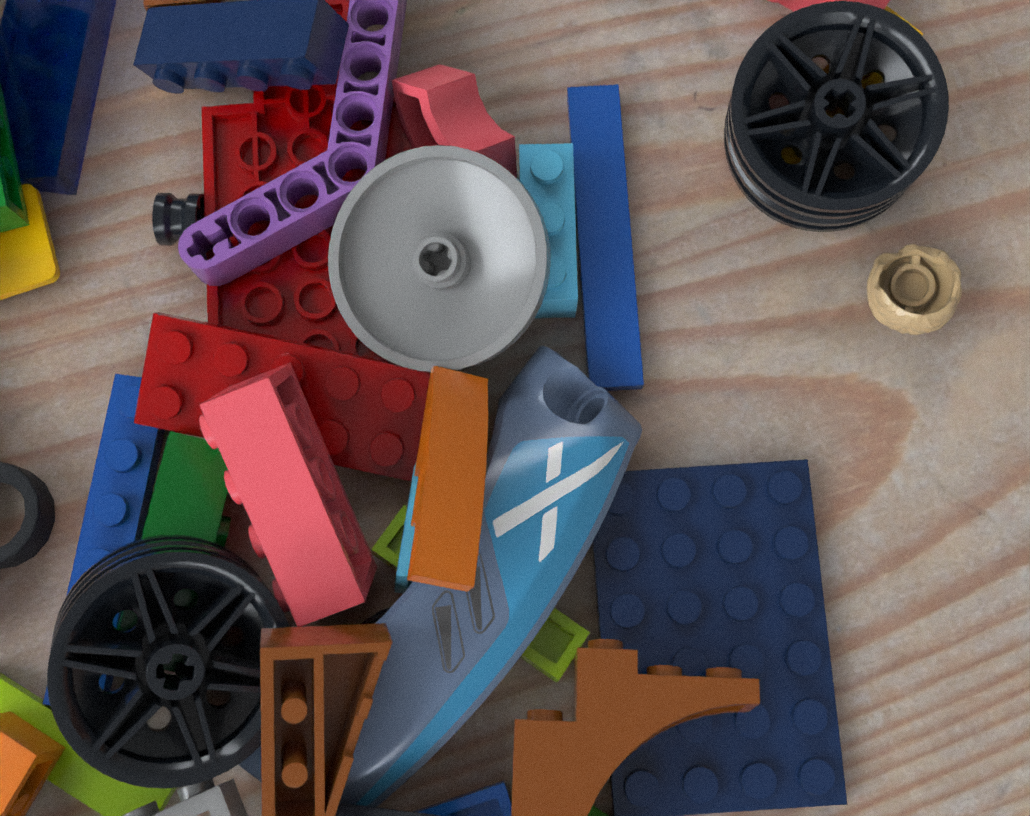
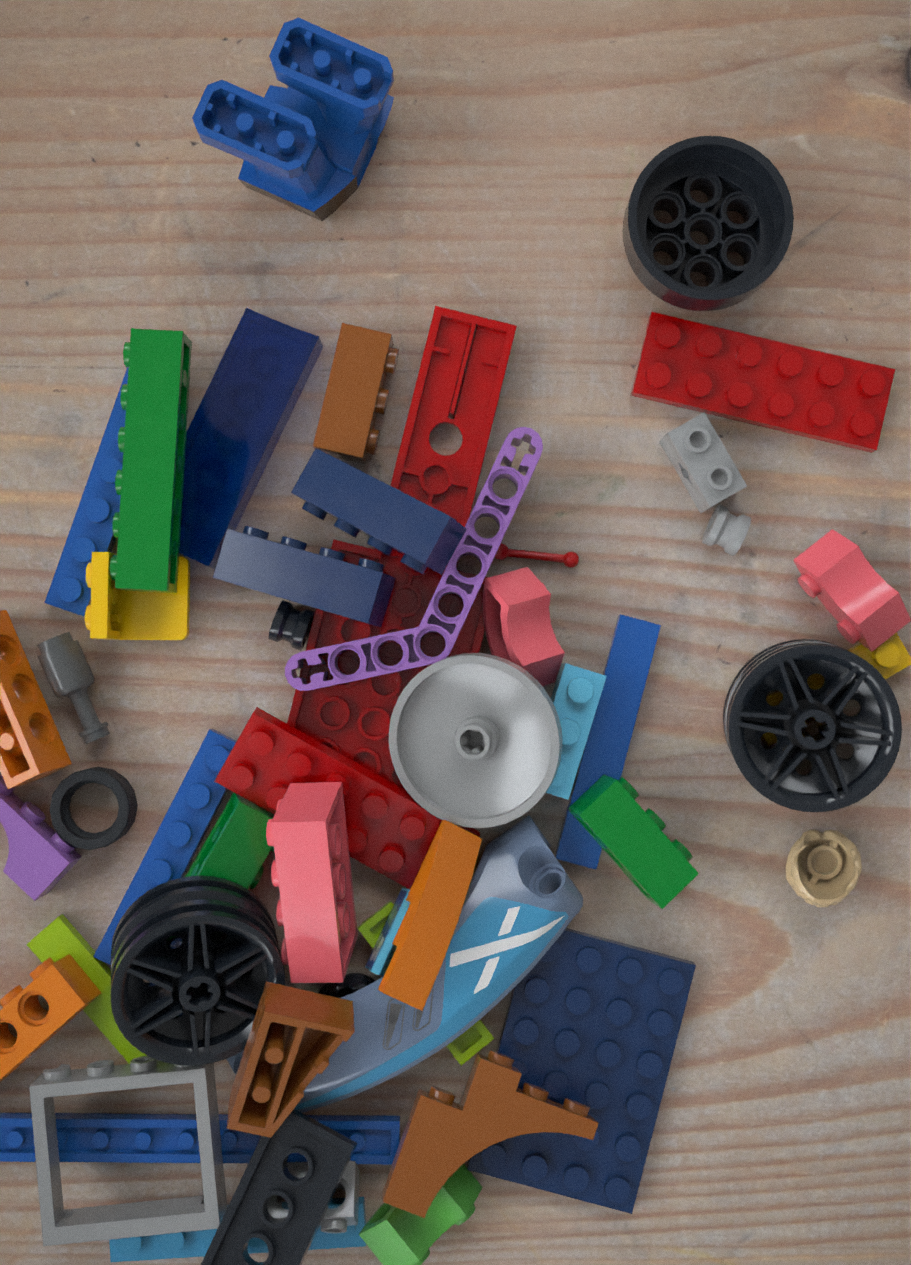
camera: 15 degrees right, 10 degrees up
(177, 149) = (305, 577): none -> dark blue brick
(489, 52) = (570, 558): none -> red hinge
(676, 328) = (634, 839): none -> green brick

